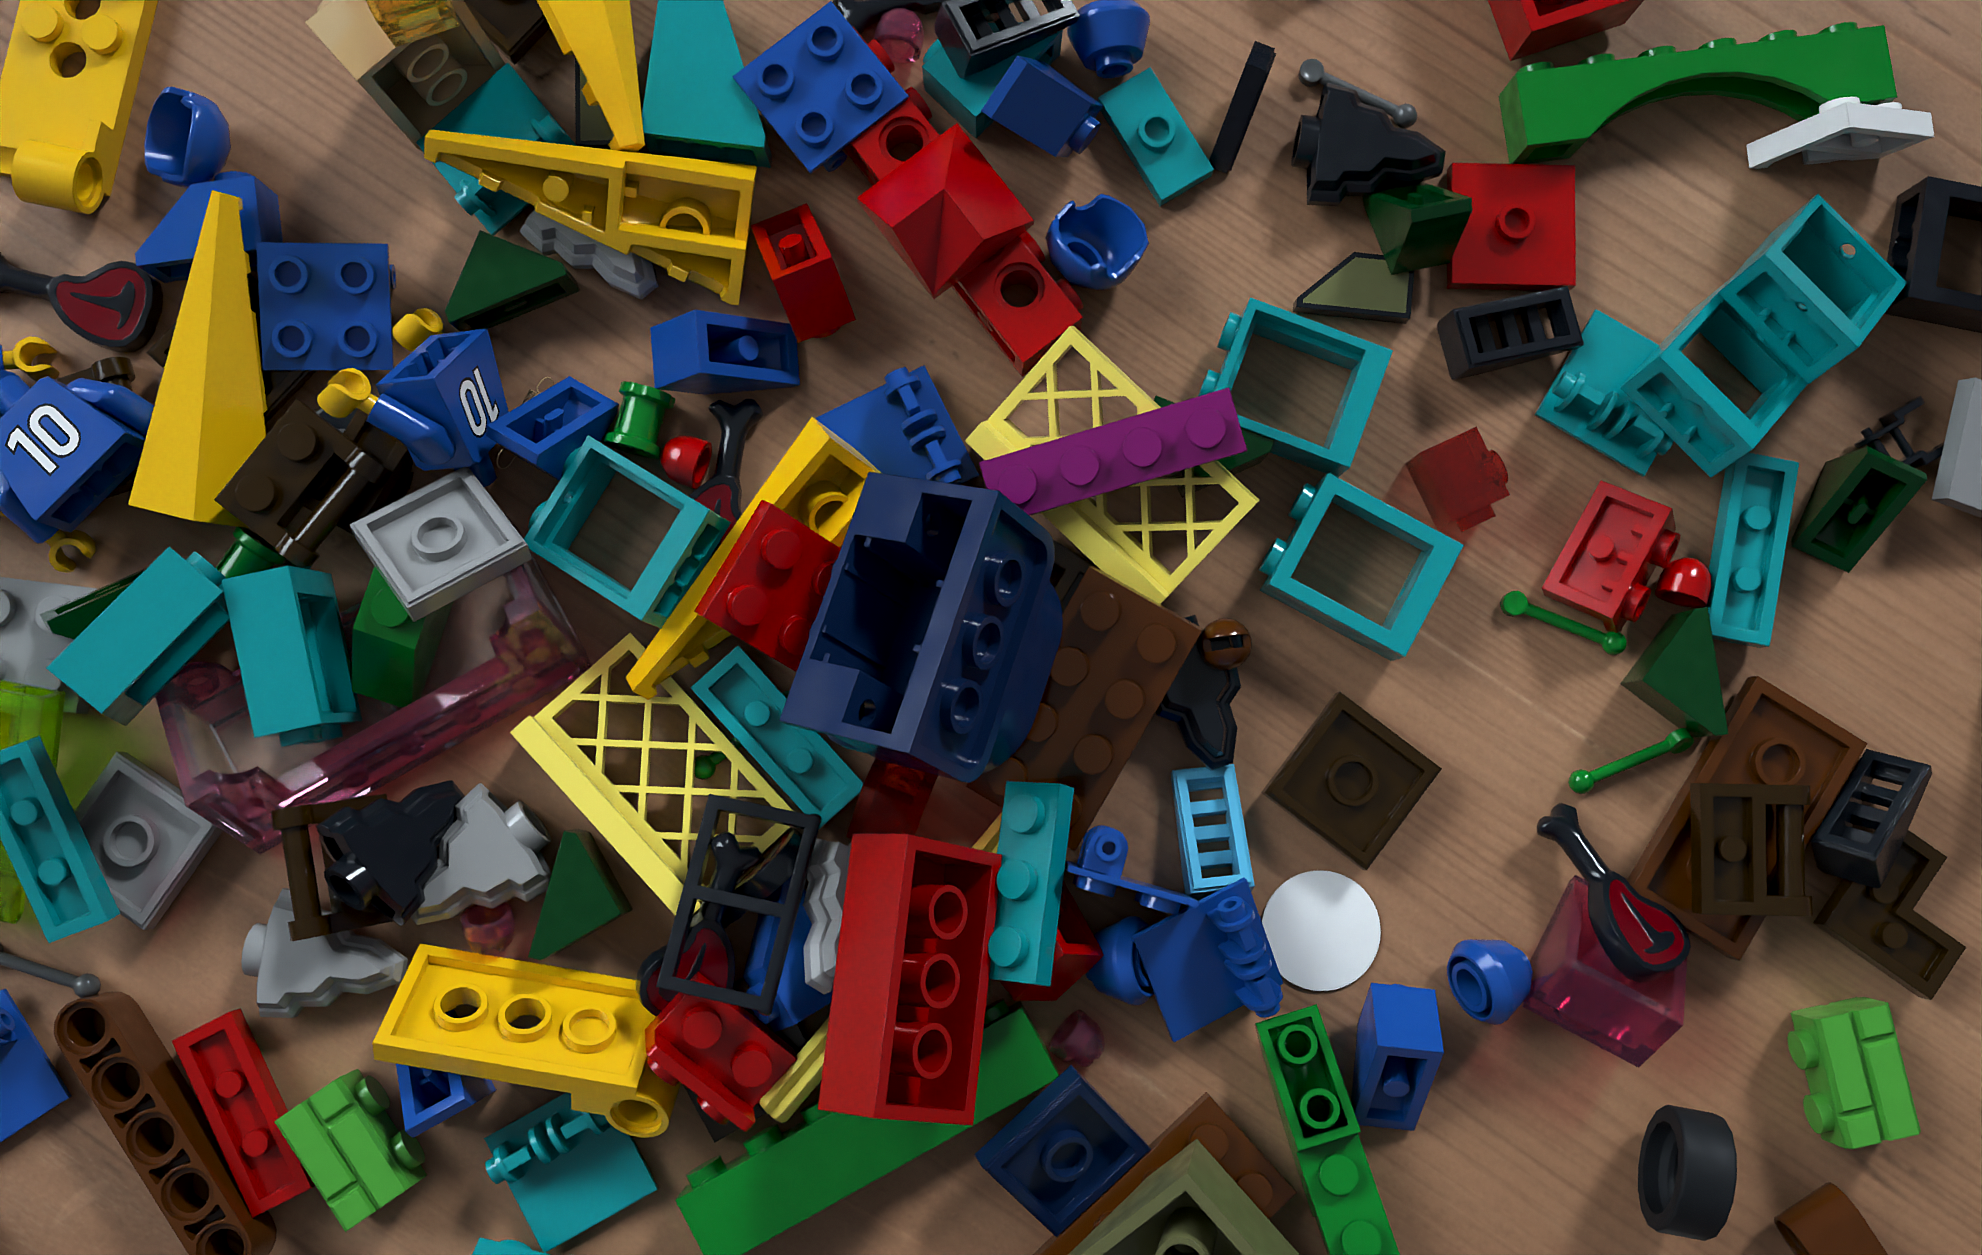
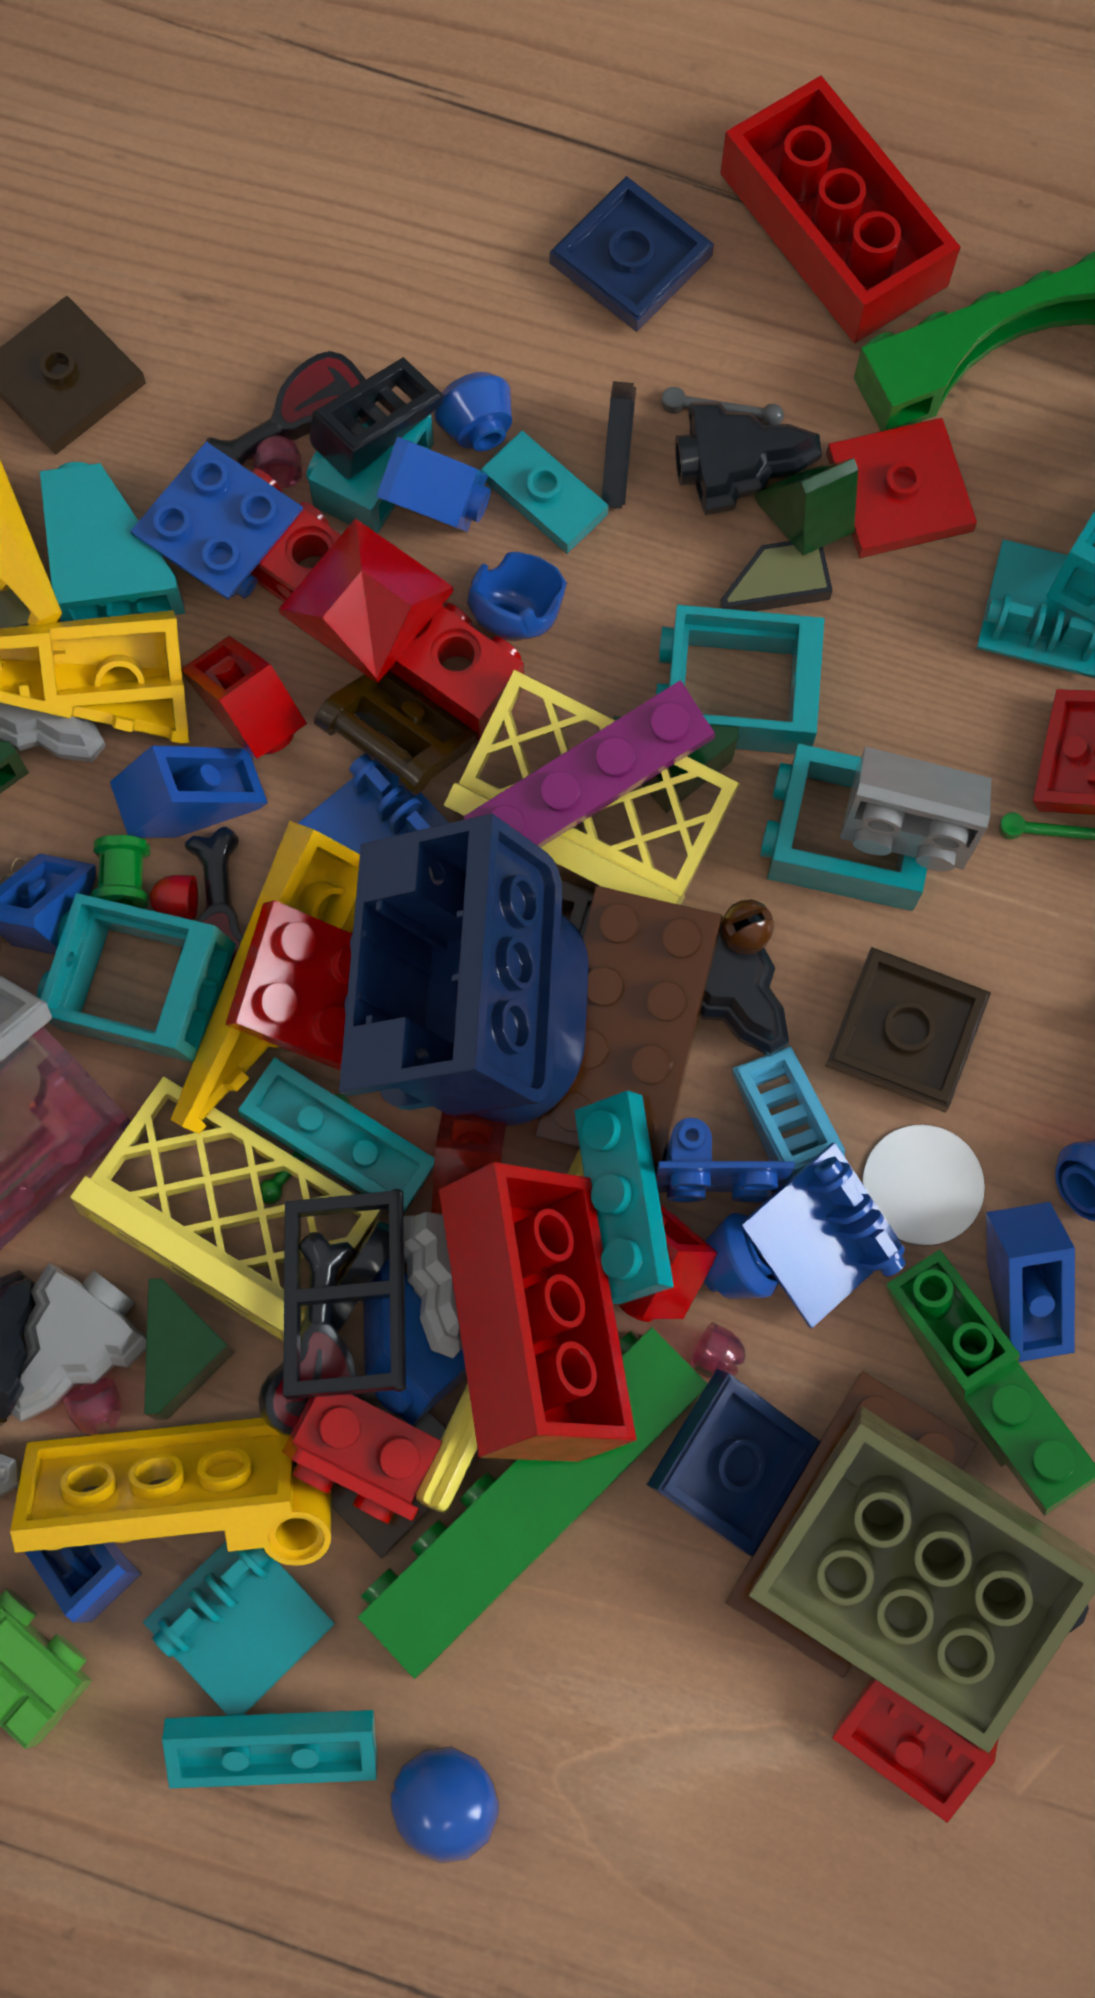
camera: 15 degrees left, 10 degrees down
(954, 340) = (405, 717): none -> dark brown plate
(1425, 579) = (916, 810): none -> light grey slope
(1459, 480) = (924, 720): clear red brick -> none
(1470, 343) = (896, 600): black slope -> none

